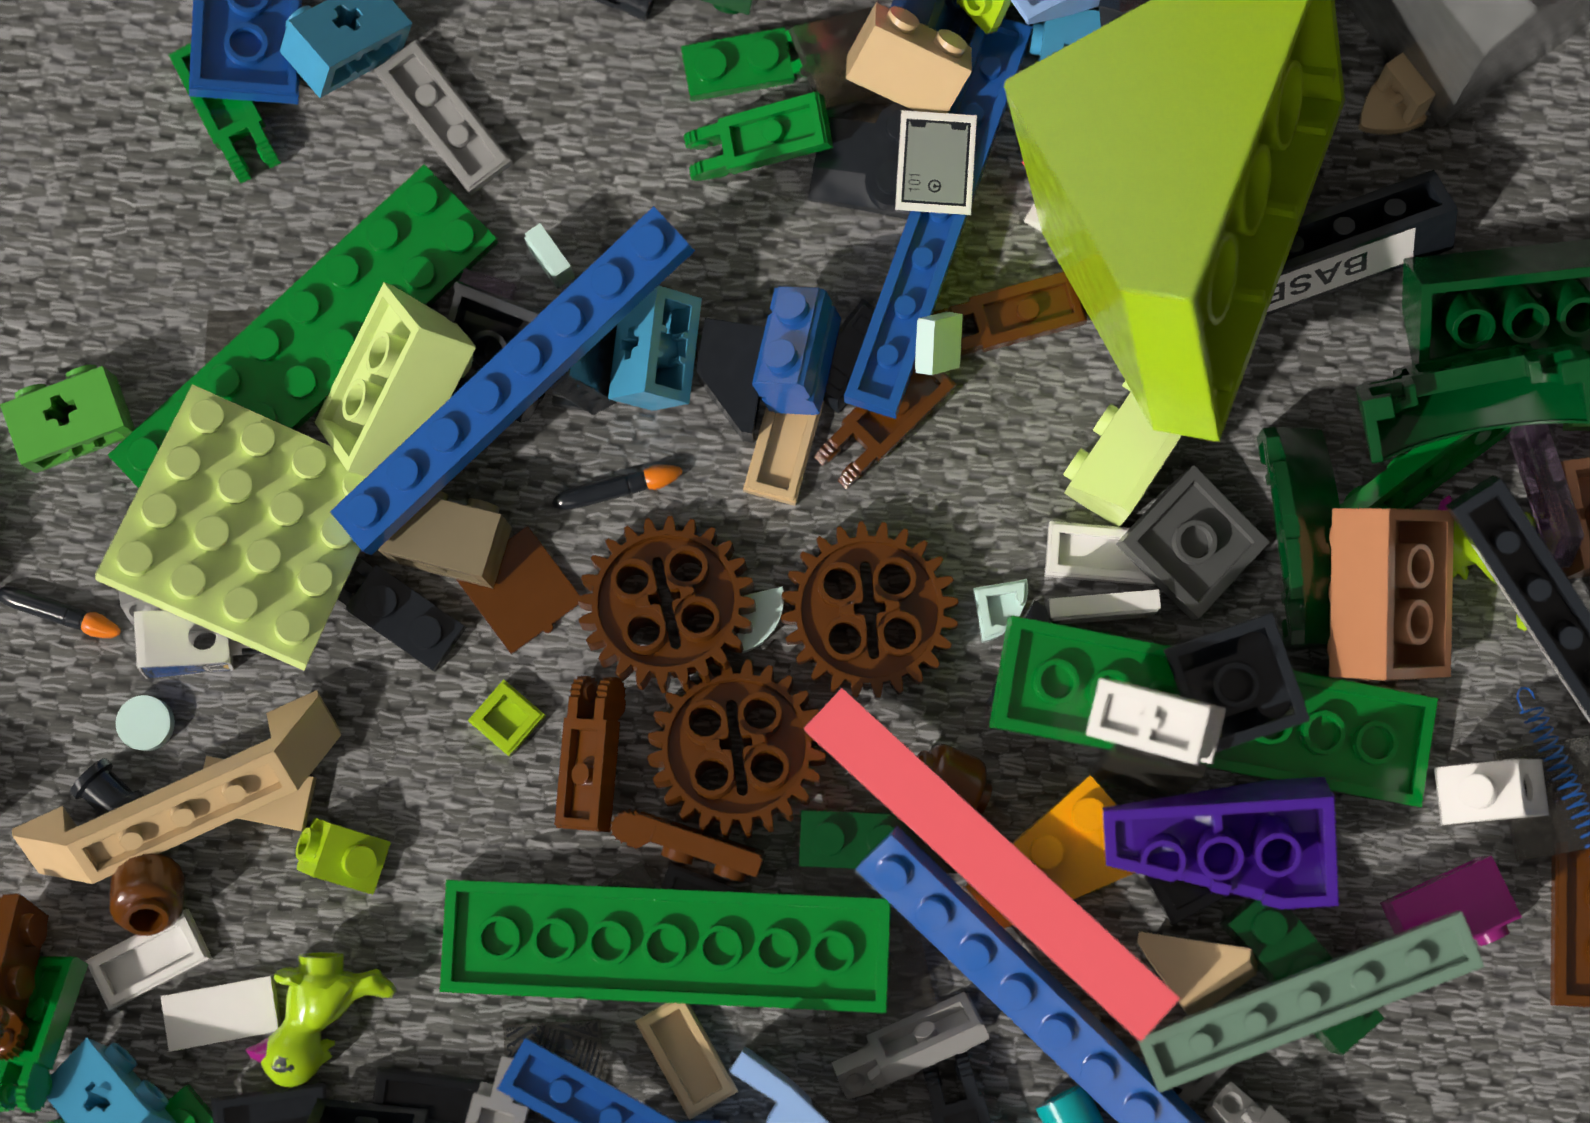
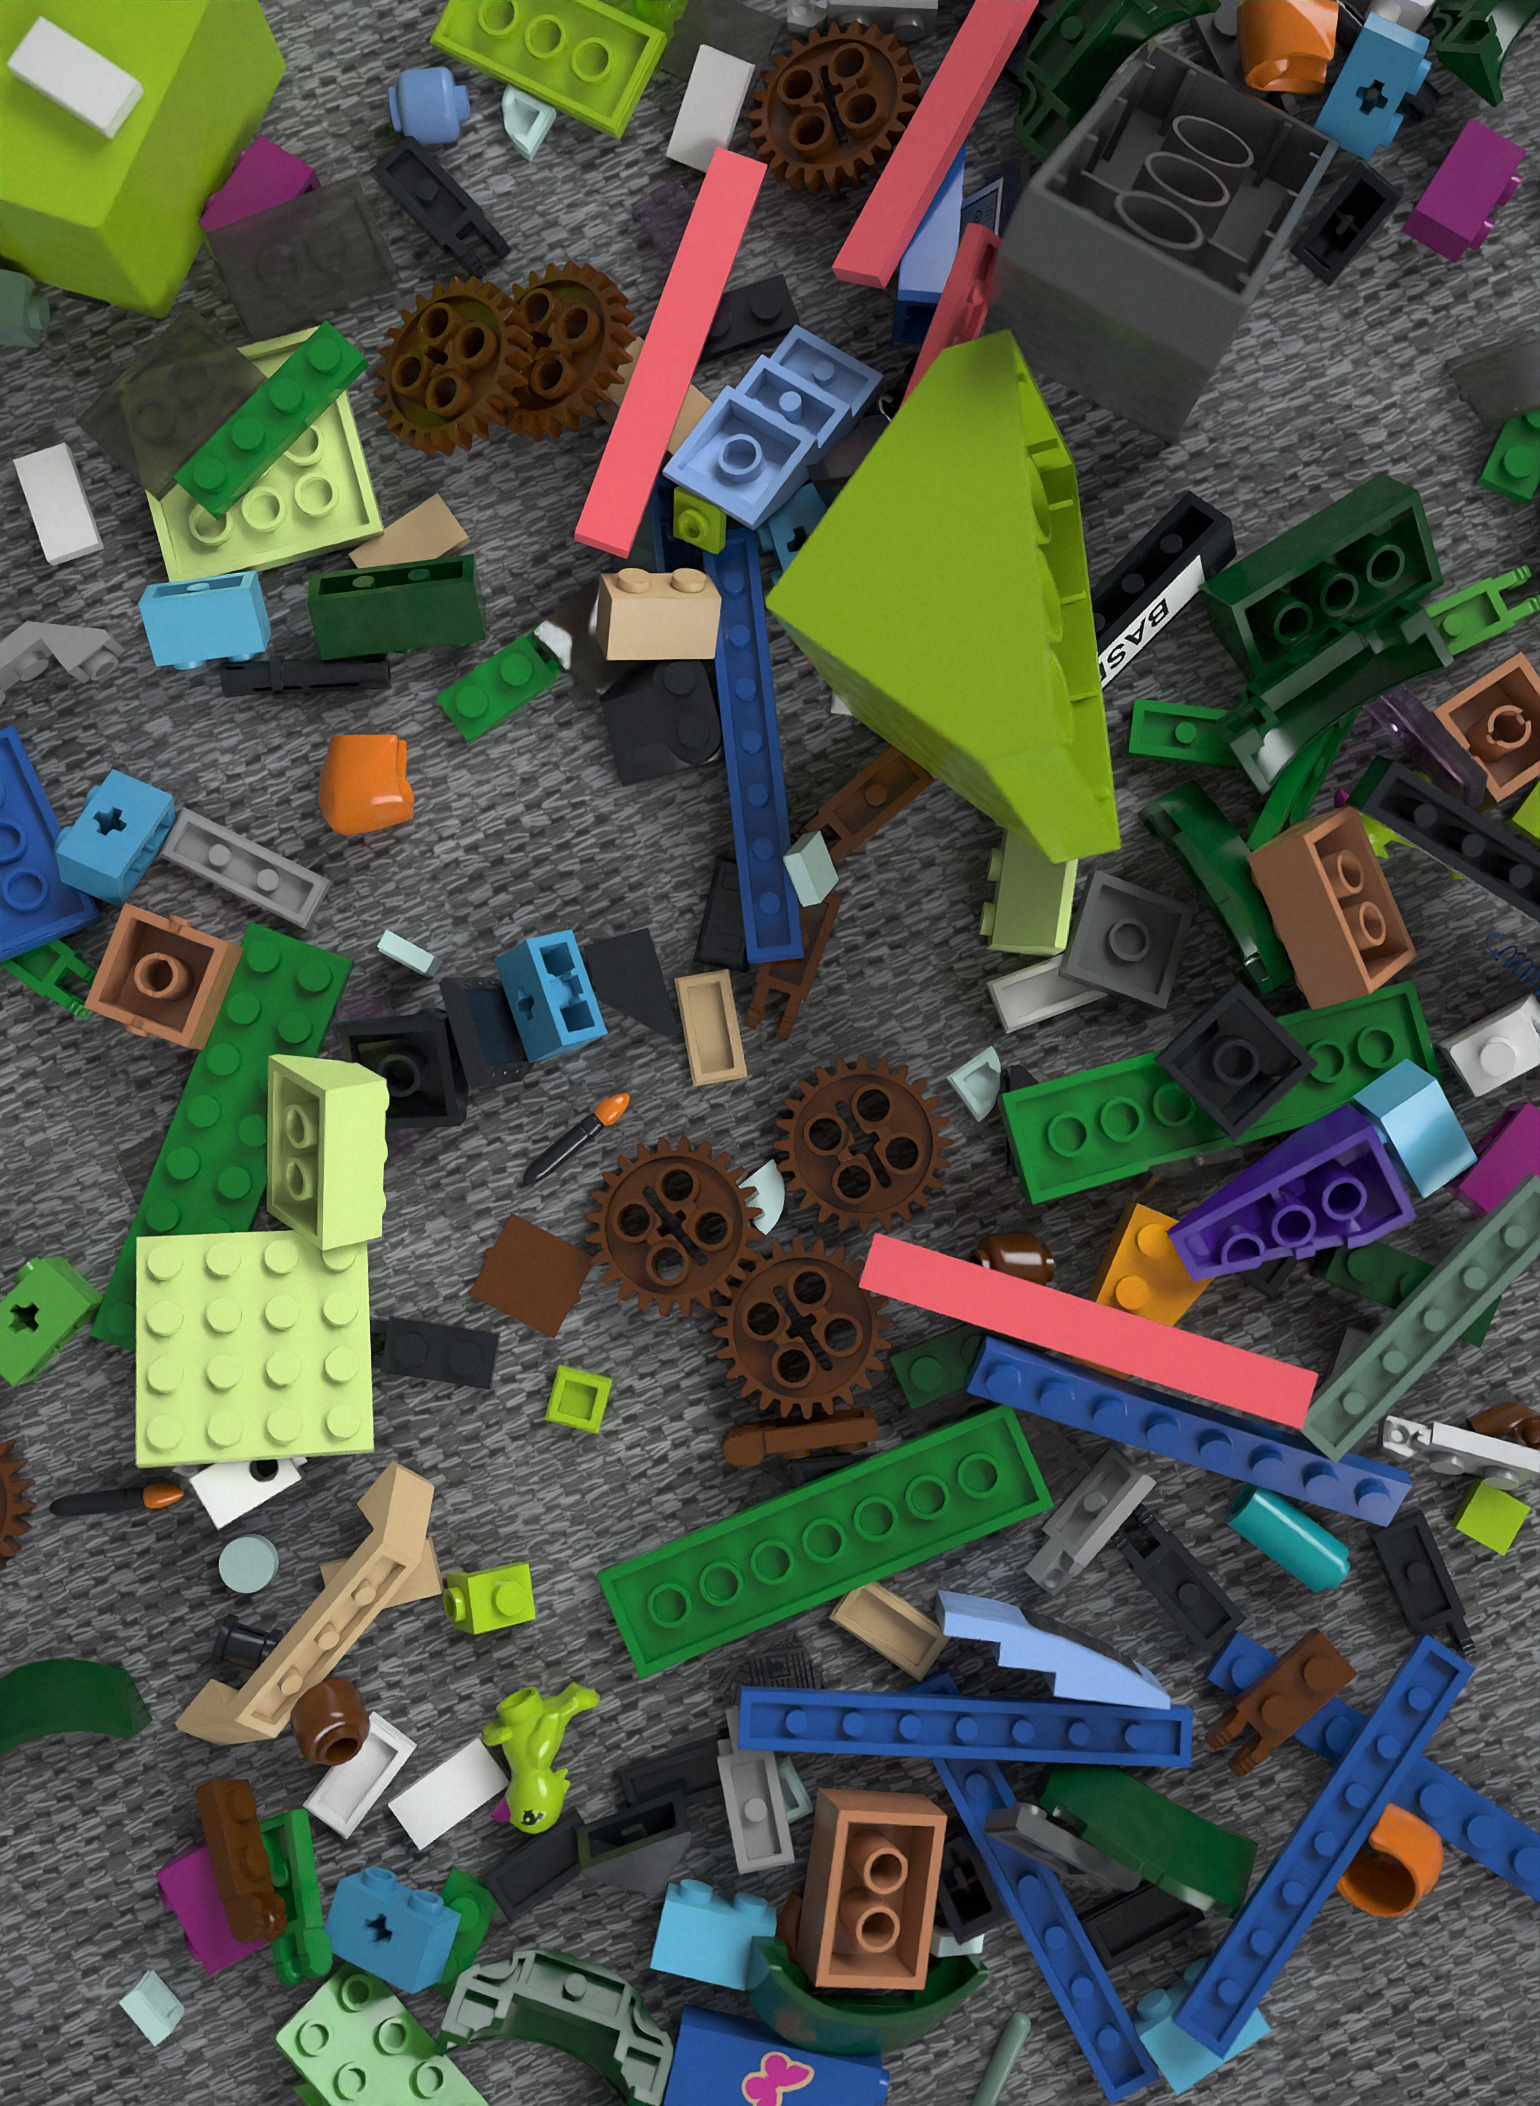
camera: 30 degrees left, 5 degrees up
(327, 173) = (163, 977): none -> nougat brick
(452, 540) = (441, 1262): dark tan brick -> none
(512, 381) = (436, 1095): blue plate -> none
(583, 89) = (365, 784): none -> orange piece
(589, 754) = (671, 1398): reddish brown hinge -> none
(762, 136) = (554, 748): green hinge -> none
(797, 350) = (683, 936): blue brick -> none
(936, 162) = (727, 699): sticker -> none
(1103, 607) = (1074, 1039): white tile -> none
(1156, 721) = (1181, 1133): white hinge -> none
(1196, 969) = (1312, 1333): tan slope -> none
(1323, 381) = (1176, 734): none -> green plate
(1376, 830) = (1416, 1127): none -> medium azure brick
(1396, 99) = (1121, 438): tan tile -> none

